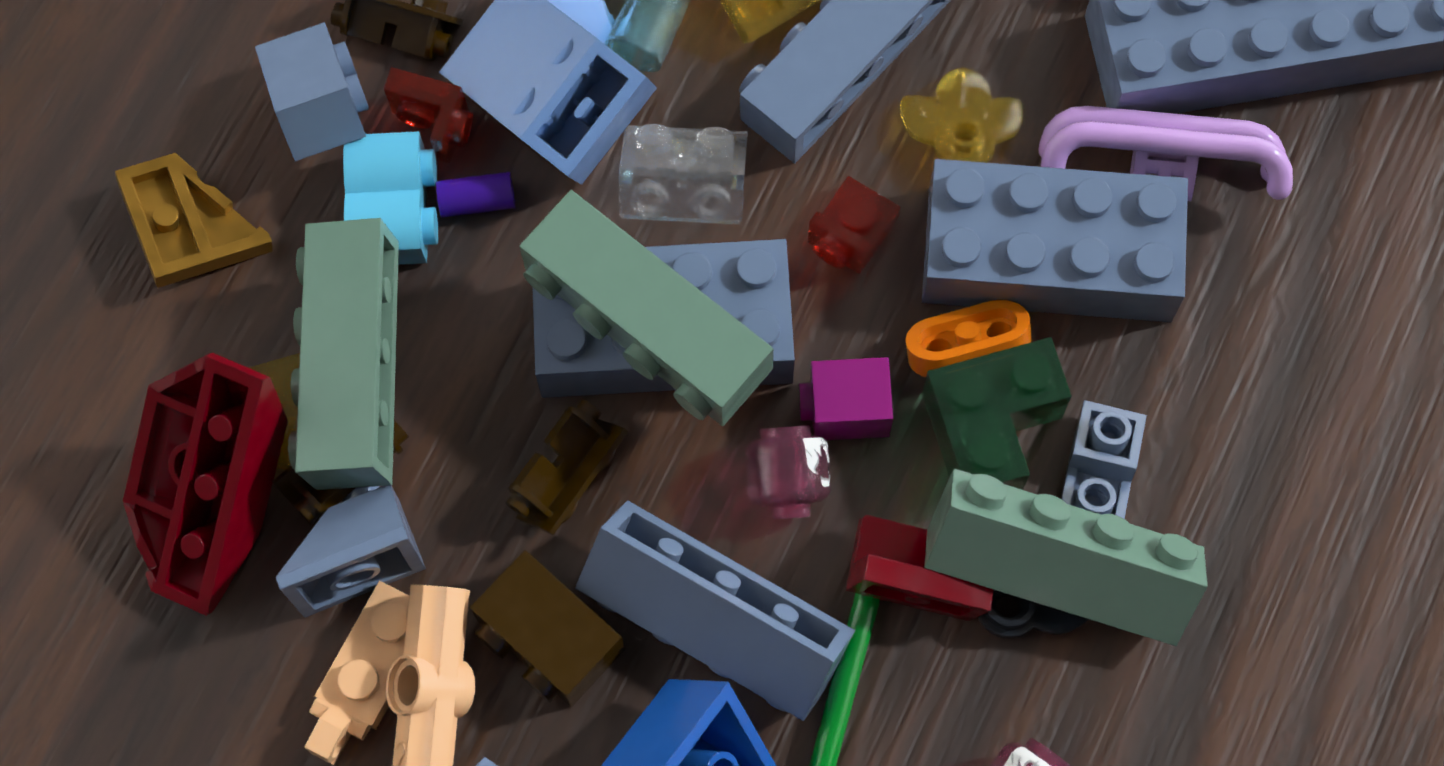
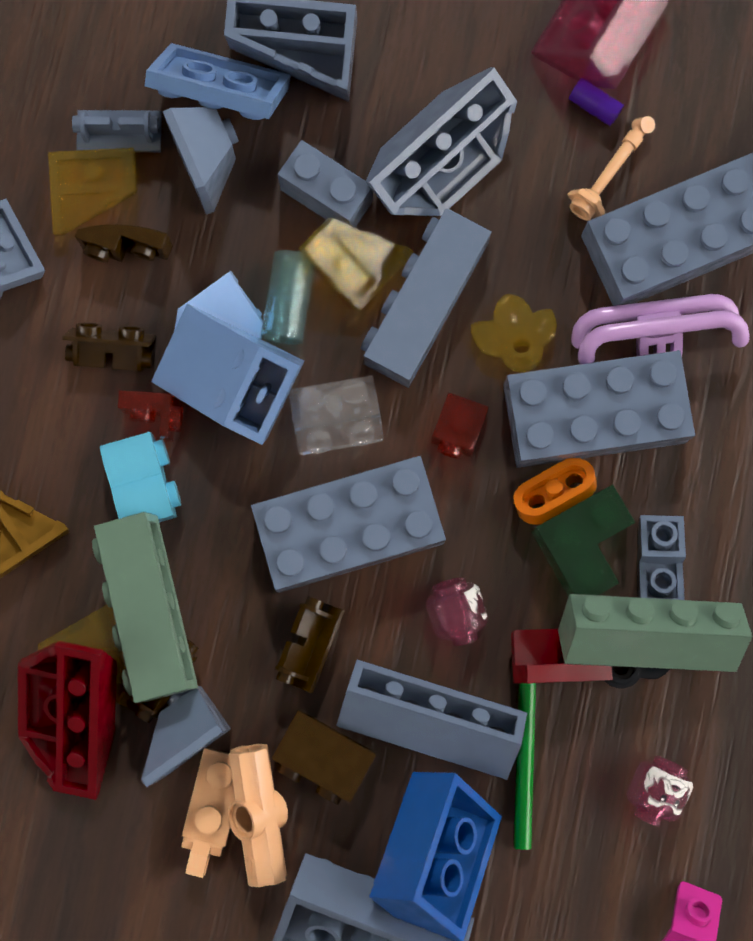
camera: 15 degrees left, 10 degrees up
(313, 90) = (67, 419): sand blue brick -> none
(475, 194) = (198, 462): dark purple piece -> none
(646, 309) = (340, 533): sand green brick -> none
(848, 399) = (484, 551): magenta brick -> none

